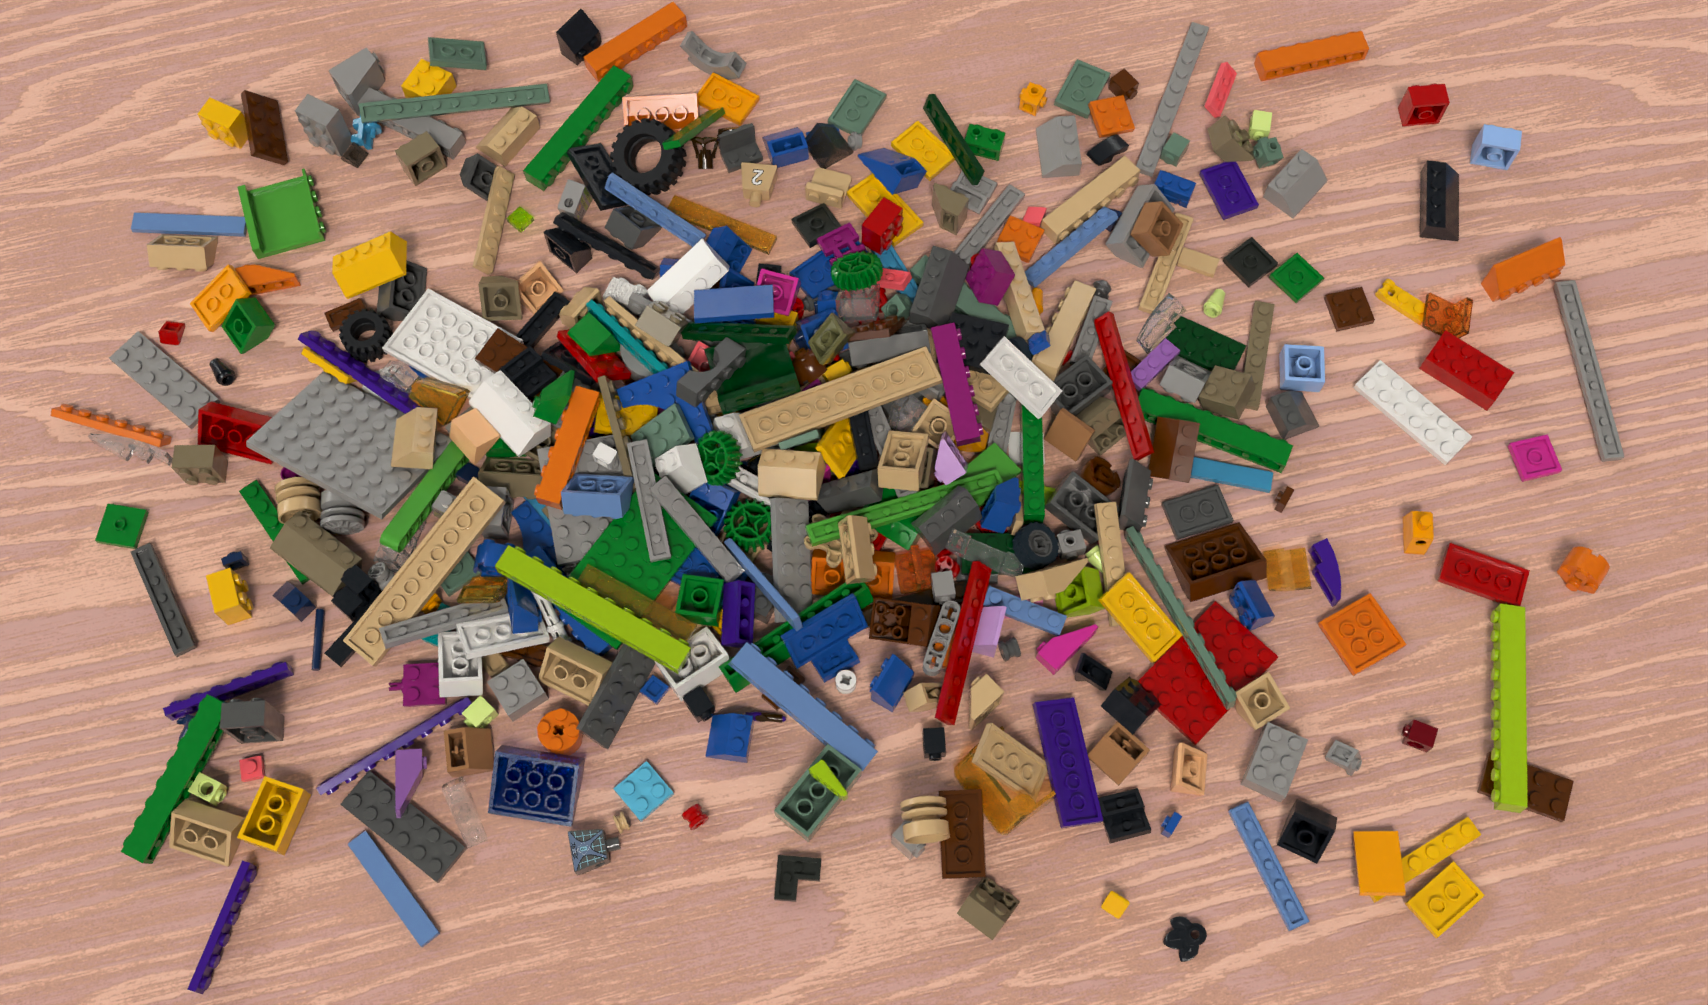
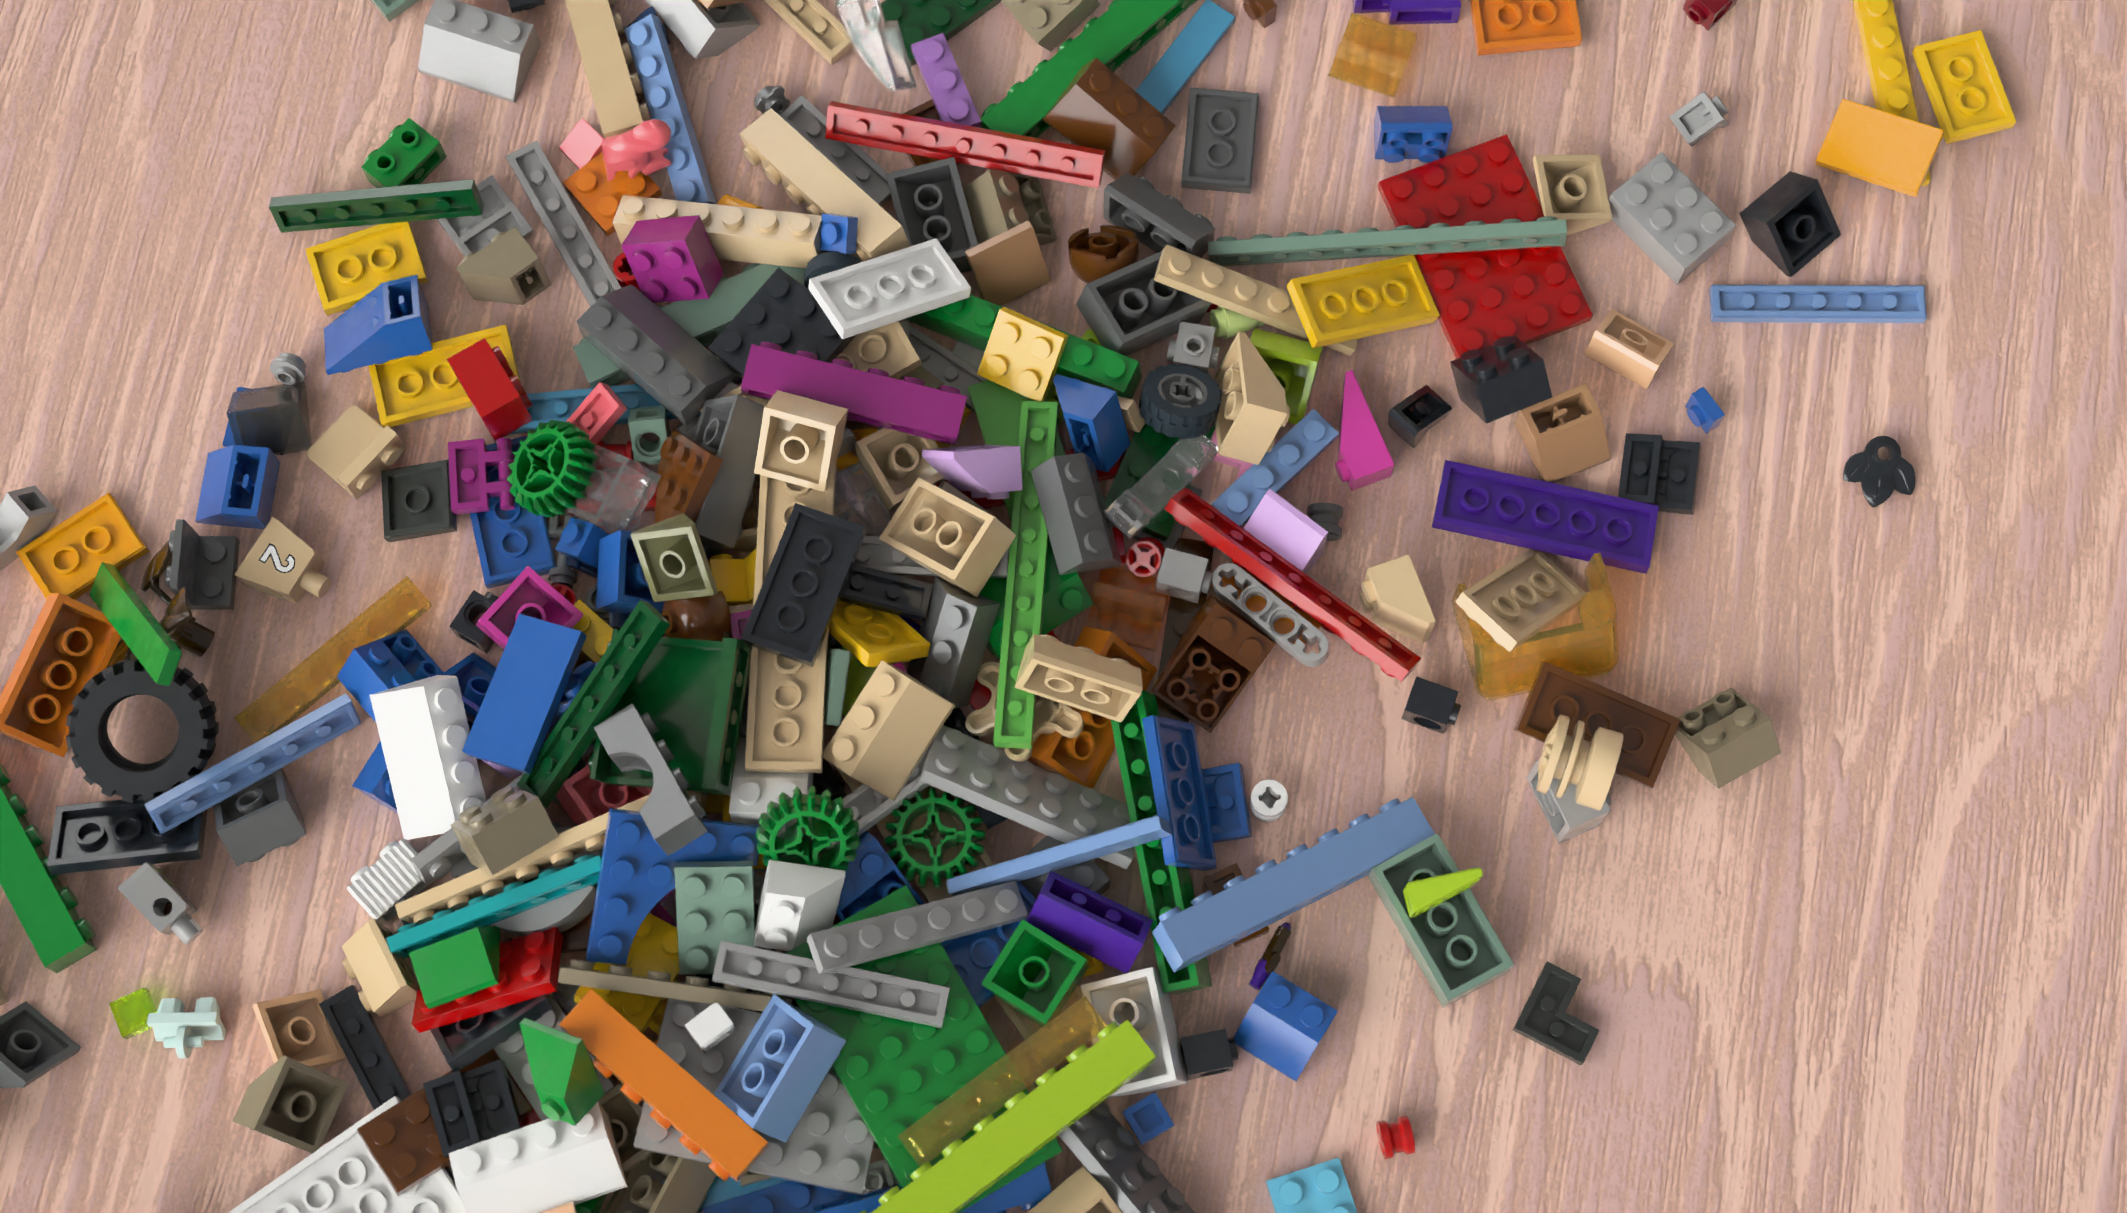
camera: 65 degrees left, 5 degrees up
(493, 220) = (114, 1061): tan plate -> none
(519, 241) = (186, 1029): none -> light aqua hips
(568, 248) = (246, 946): black slope -> none
(602, 243) = (269, 881): black plate -> none
(842, 400) = (804, 584): none -> black plate
(857, 108) = (222, 339): sand green tile -> none
(891, 683) = (1306, 729): blue slope -> none
(916, 366) = (800, 440): none -> tan slope
(923, 697) = (1349, 684): tan slope -> none
(1020, 457) = (1022, 354): none -> yellow plate
(1032, 98) = (364, 47): light orange brick -> none
(1039, 236) = (637, 149): none -> coral animal
(1115, 904) = (1792, 548): yellow slope -> none
(1185, 379) = (993, 50): light grey slope -> none
(1216, 561) = (1316, 149): reddish brown slope -> none

